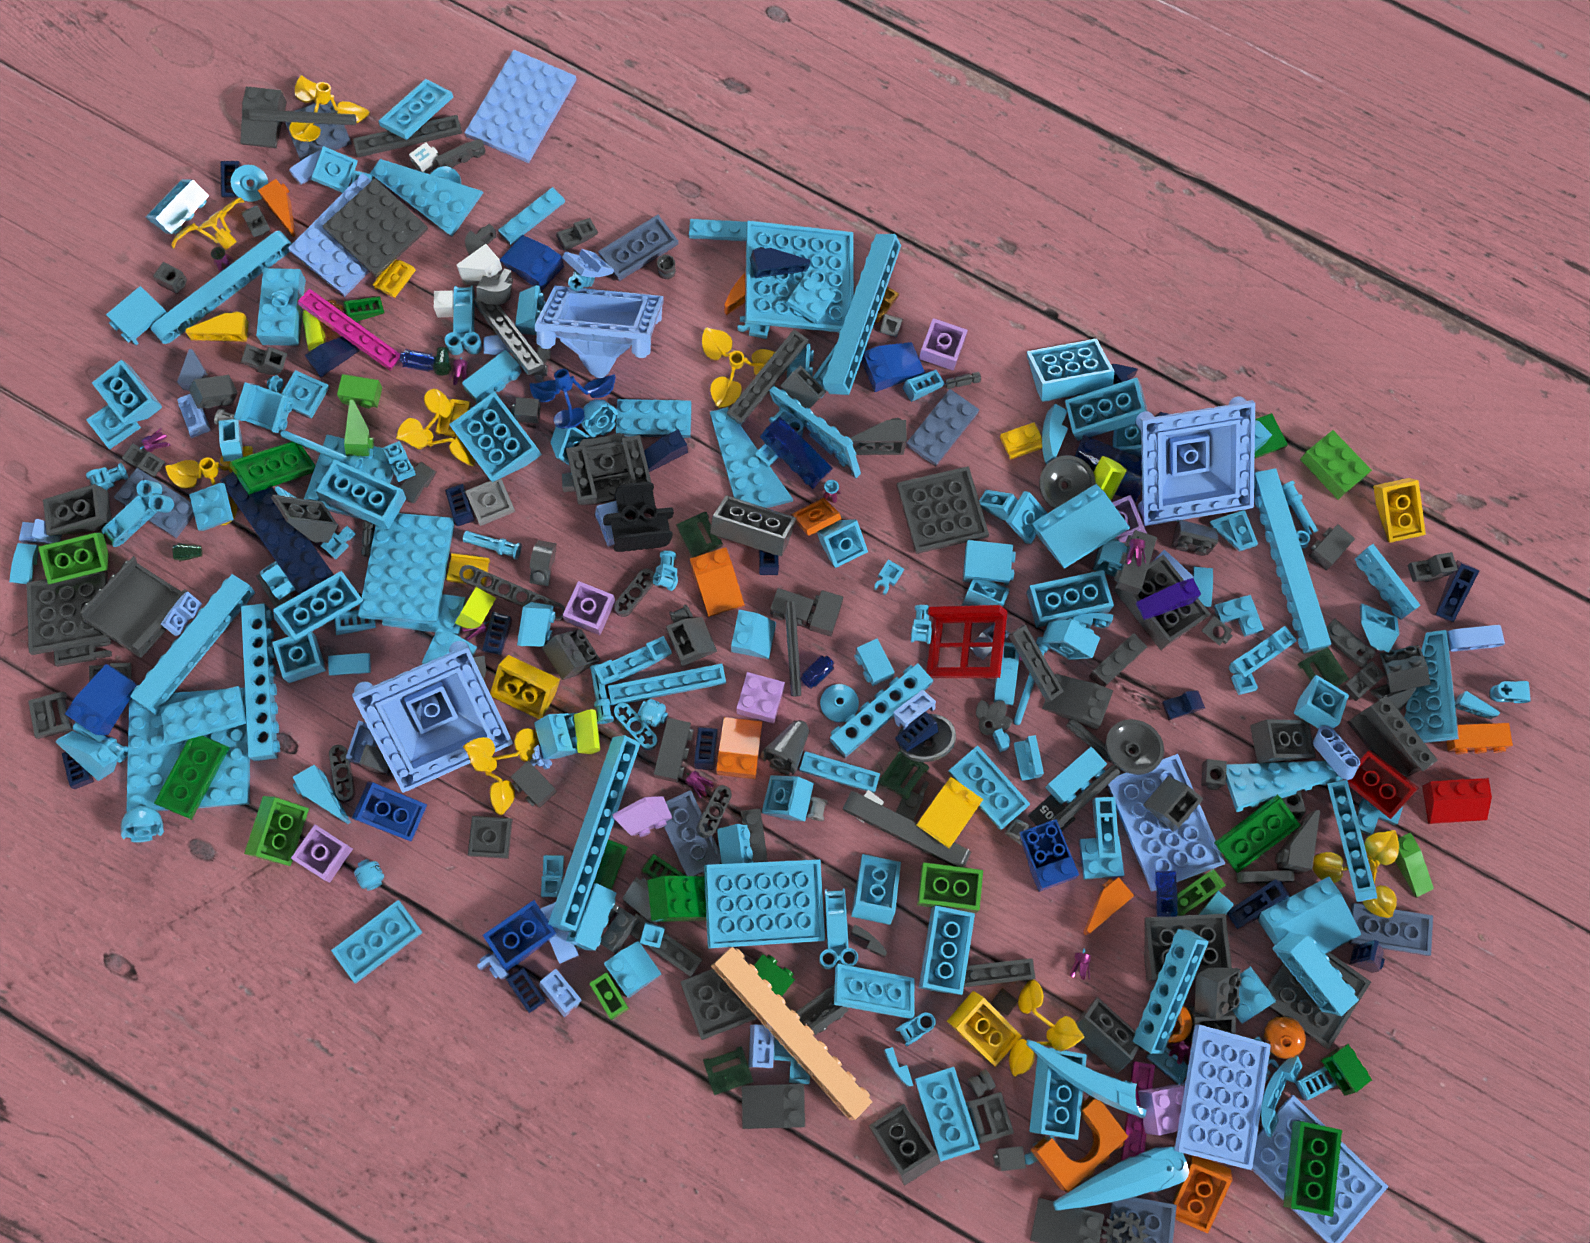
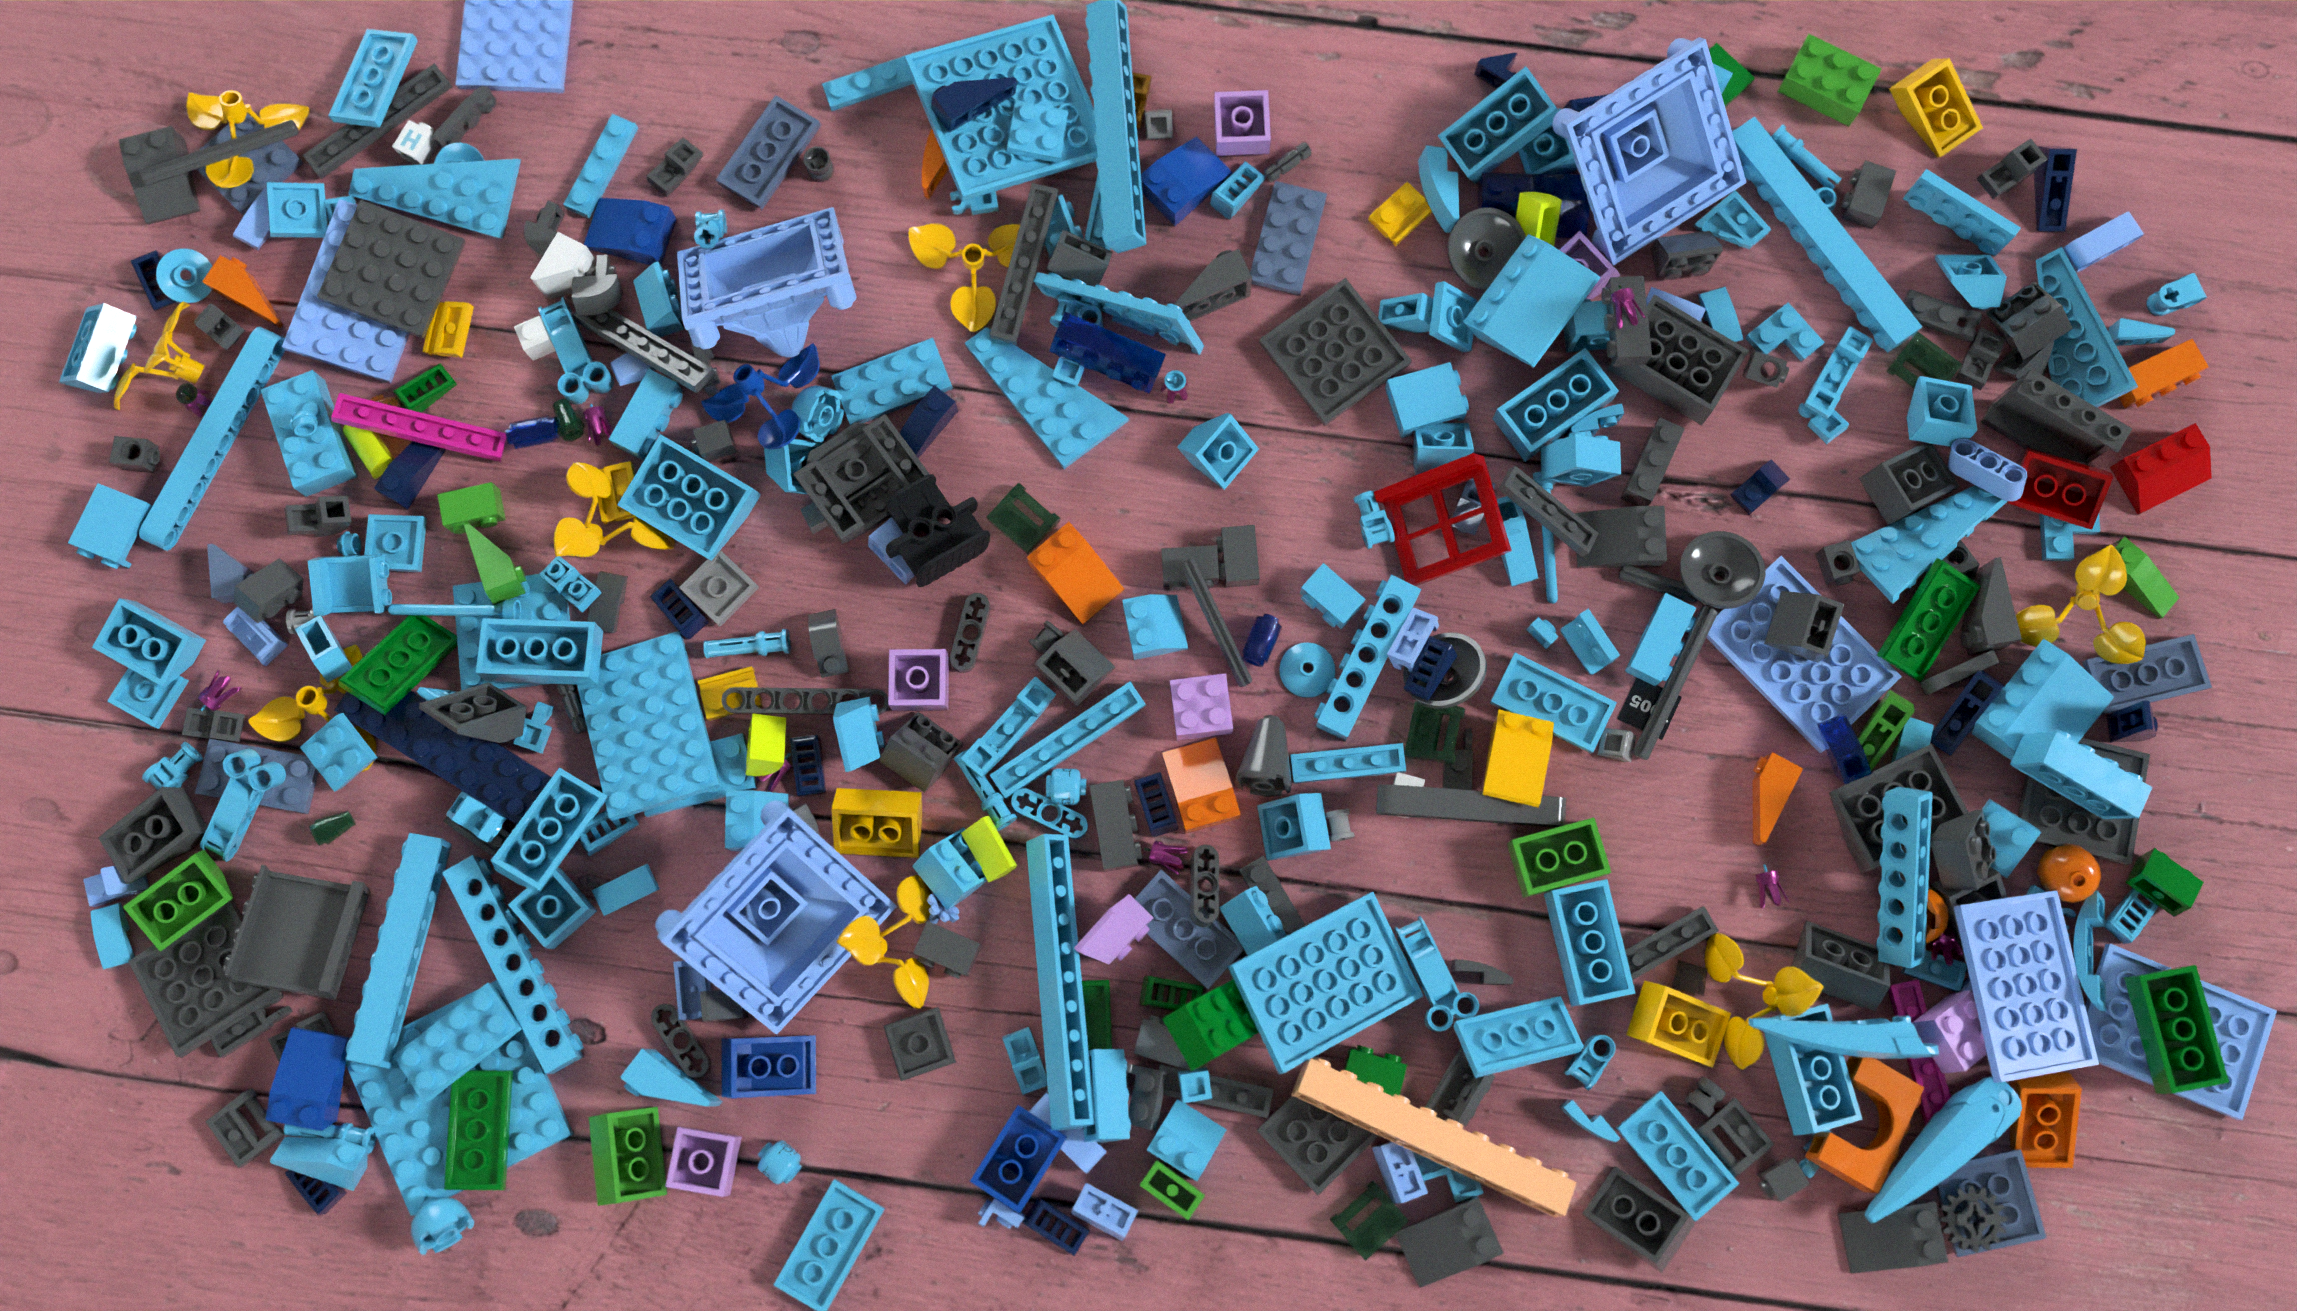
camera: 15 degrees left, 5 degrees up
(180, 613) = (363, 916): light blue slope -> none
(221, 328) = (239, 496): yellow slope -> none
(588, 264) = (710, 203): light blue slope -> none
(665, 573) = (1001, 587): medium azure connector -> none
(752, 525) = (1091, 477): dark grey slope -> none
(768, 567) = (1135, 523): dark blue slope -> none
(816, 516) = (1171, 429): orange plate -> none
(876, 889) = (1462, 900): medium azure slope -> none
(890, 575) = (1301, 469): medium azure plate -> none
(994, 714) = (1518, 601): dark grey plate -> none
(1048, 855) = (1669, 761): blue slope -> none
(1070, 369) = (1426, 89): medium azure slope -> none
(1096, 867) = (1736, 734): medium azure plate -> none
(1106, 826) = (1729, 692): medium azure slope -> none
(1169, 599) = (1689, 352): dark purple slope -> none
(1352, 841) = (2056, 579): medium azure brick -> none

